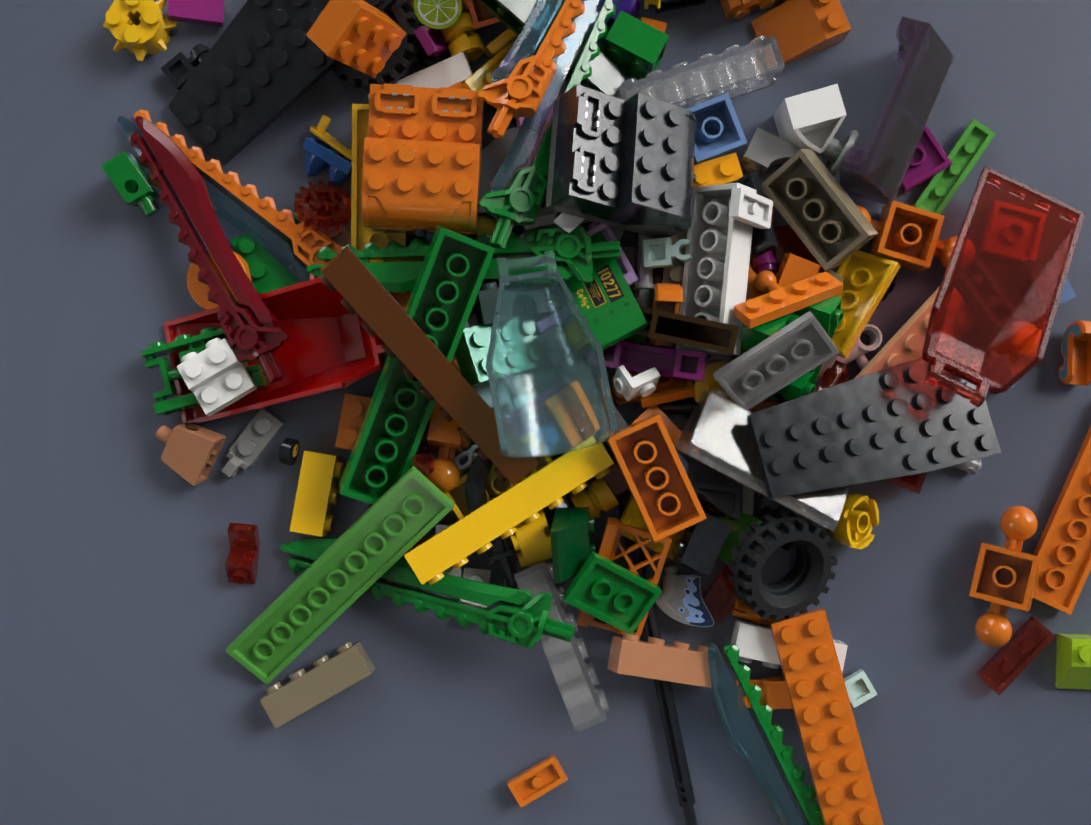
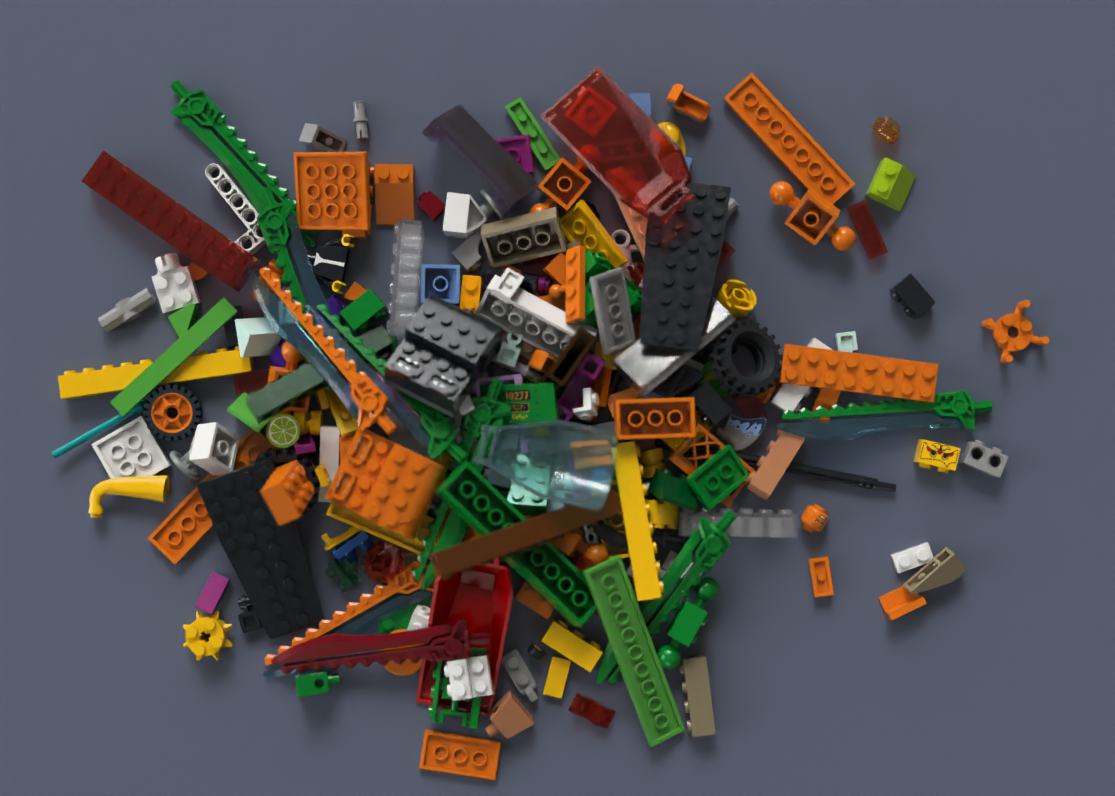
camera: 60 degrees left, 0 degrees up
(119, 408) = (460, 754): none -> orange tile
(268, 280) = (419, 618): none -> white bracket
(268, 490) = (556, 677): none -> yellow tile
(290, 165) = (345, 571): none -> clear green hips
(403, 77) = (323, 475): none -> yellow tile
(404, 631) = (687, 621): none -> green brick
(610, 741) = (814, 518): none -> orange head
(805, 76) = (431, 205): none -> dark red brick
(954, 751) = (912, 296): none -> black brick

